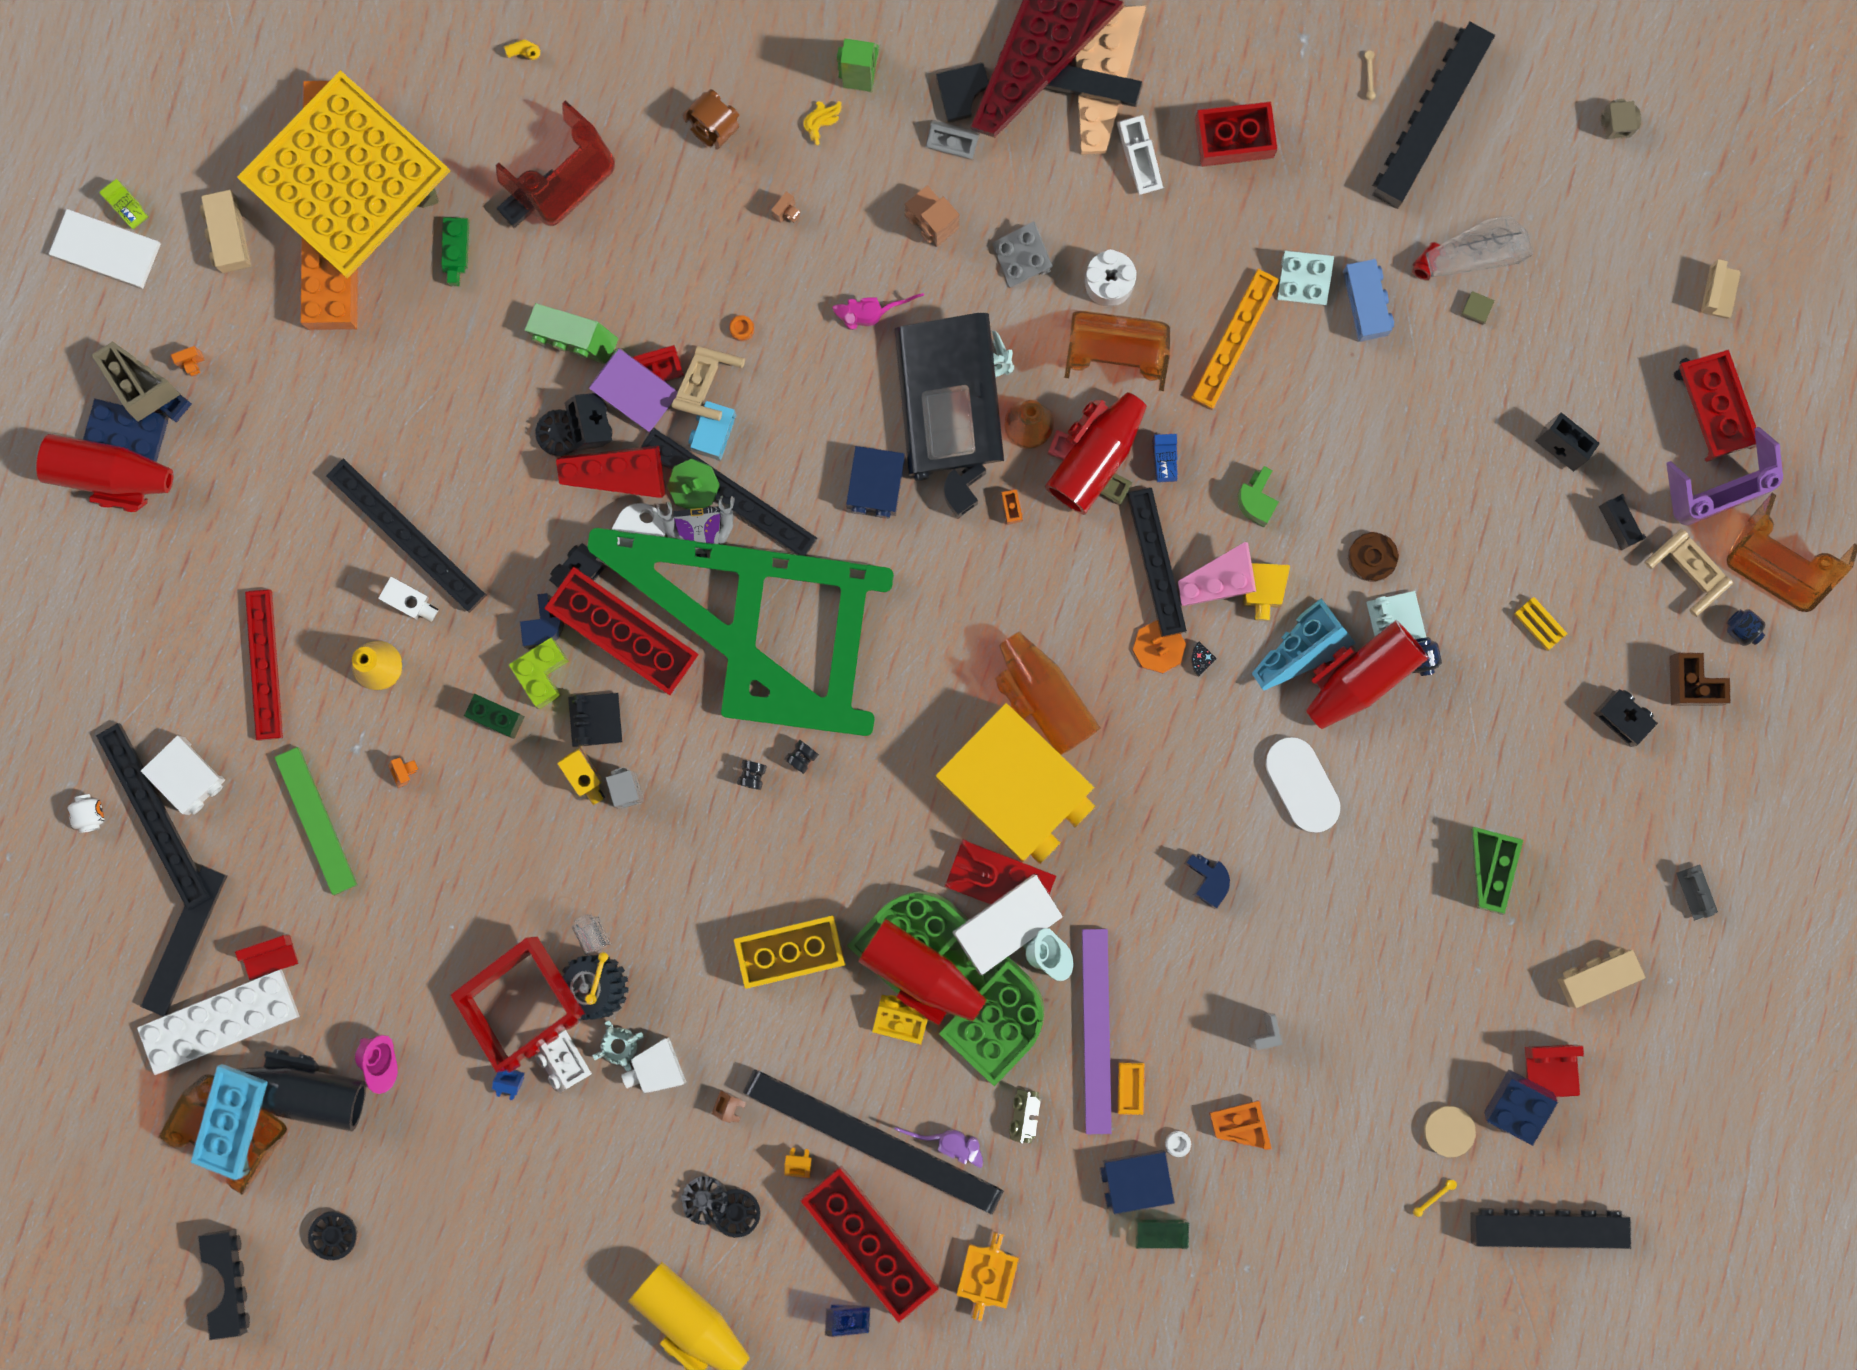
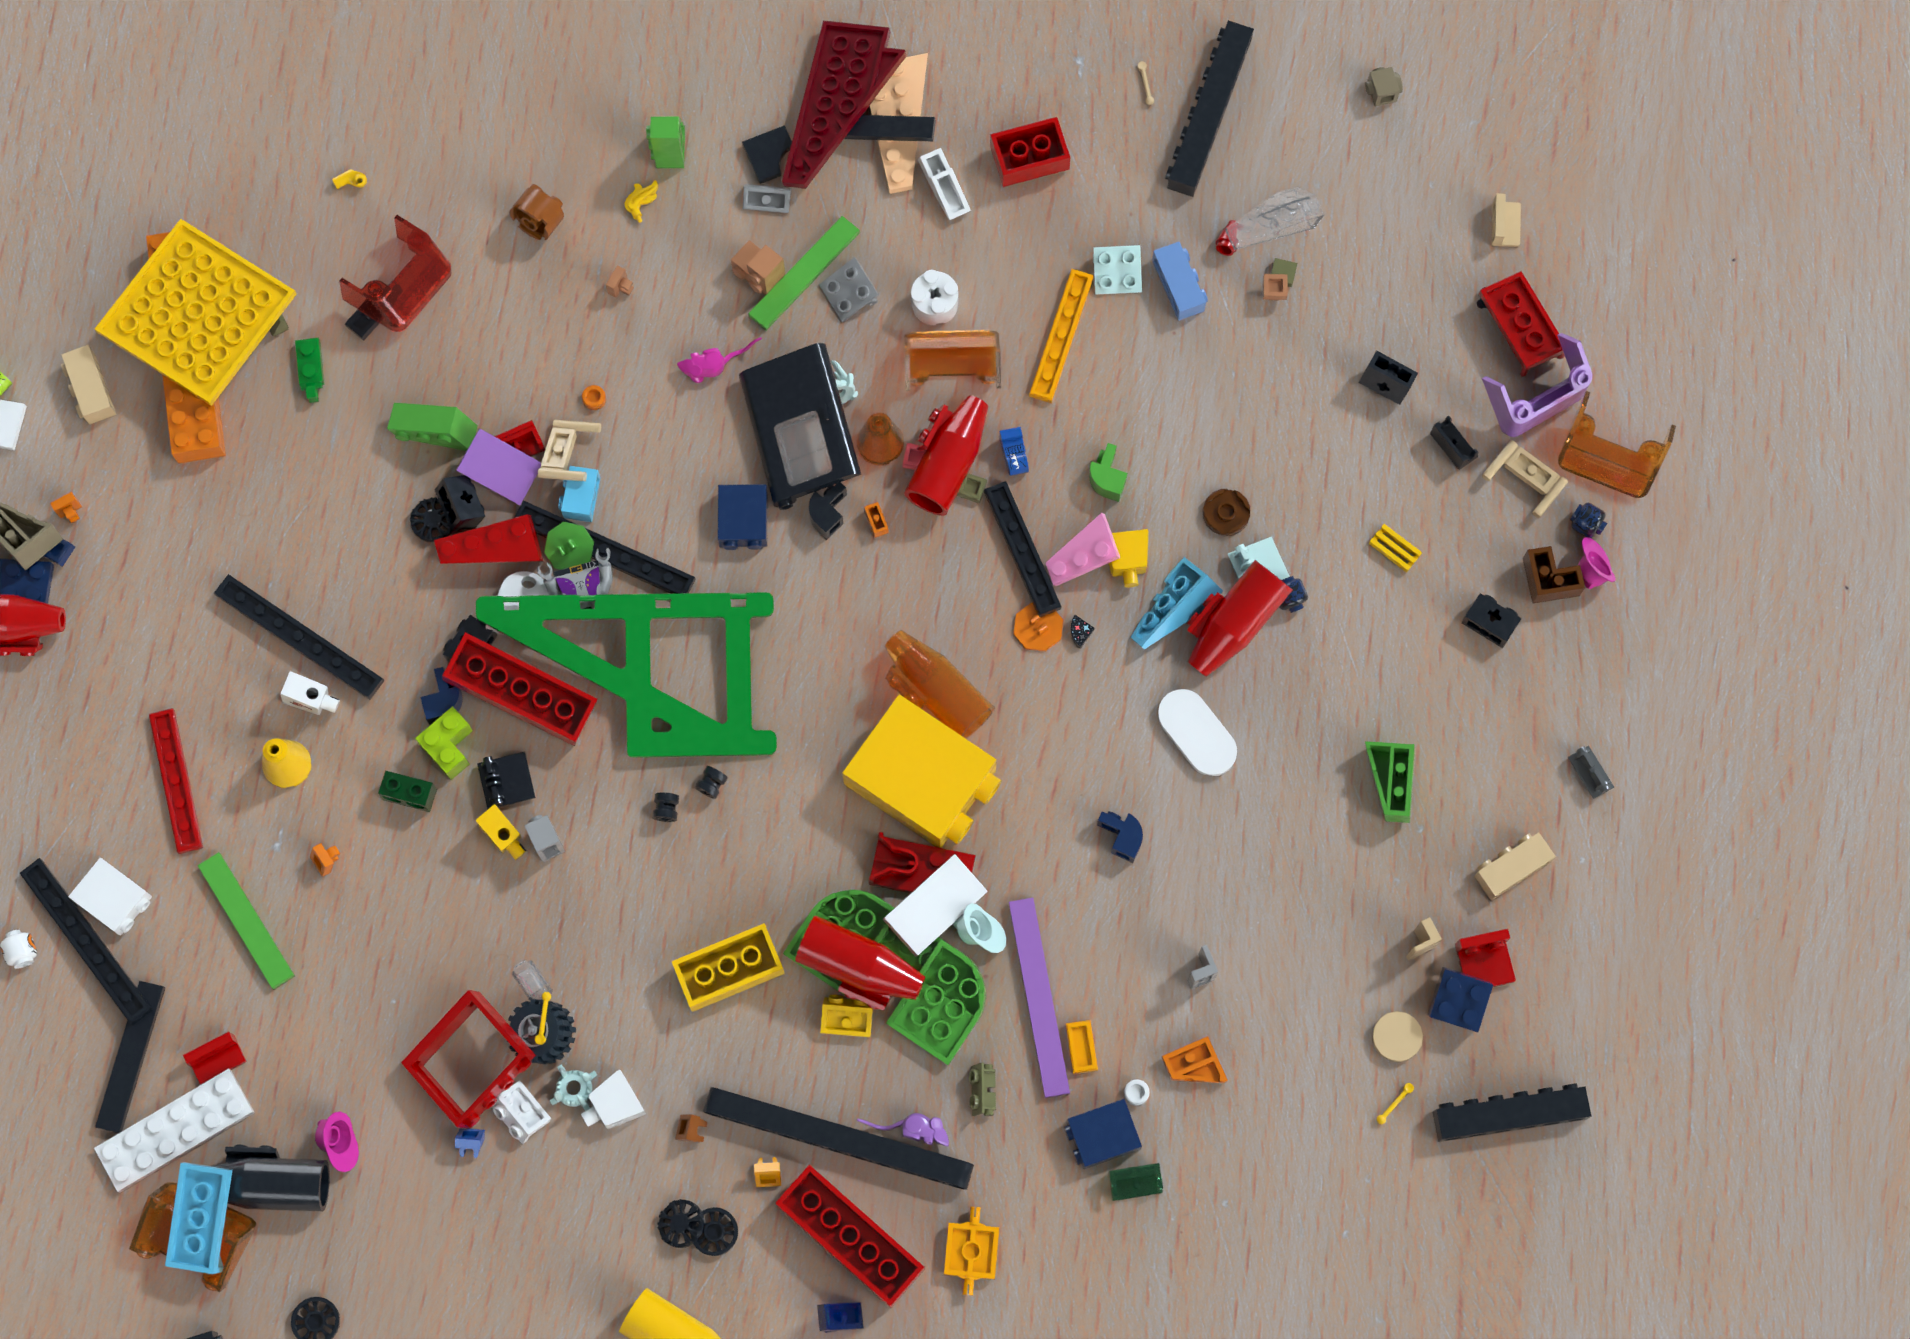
camera: 10 degrees left, 10 degrees down
(979, 228) = (804, 273): none -> bright green tile
(1467, 323) = (1275, 287): none -> nougat tile
(1500, 1040) = (1428, 937): none -> tan panel
(1744, 676) = (1595, 564): none -> dark pink piece

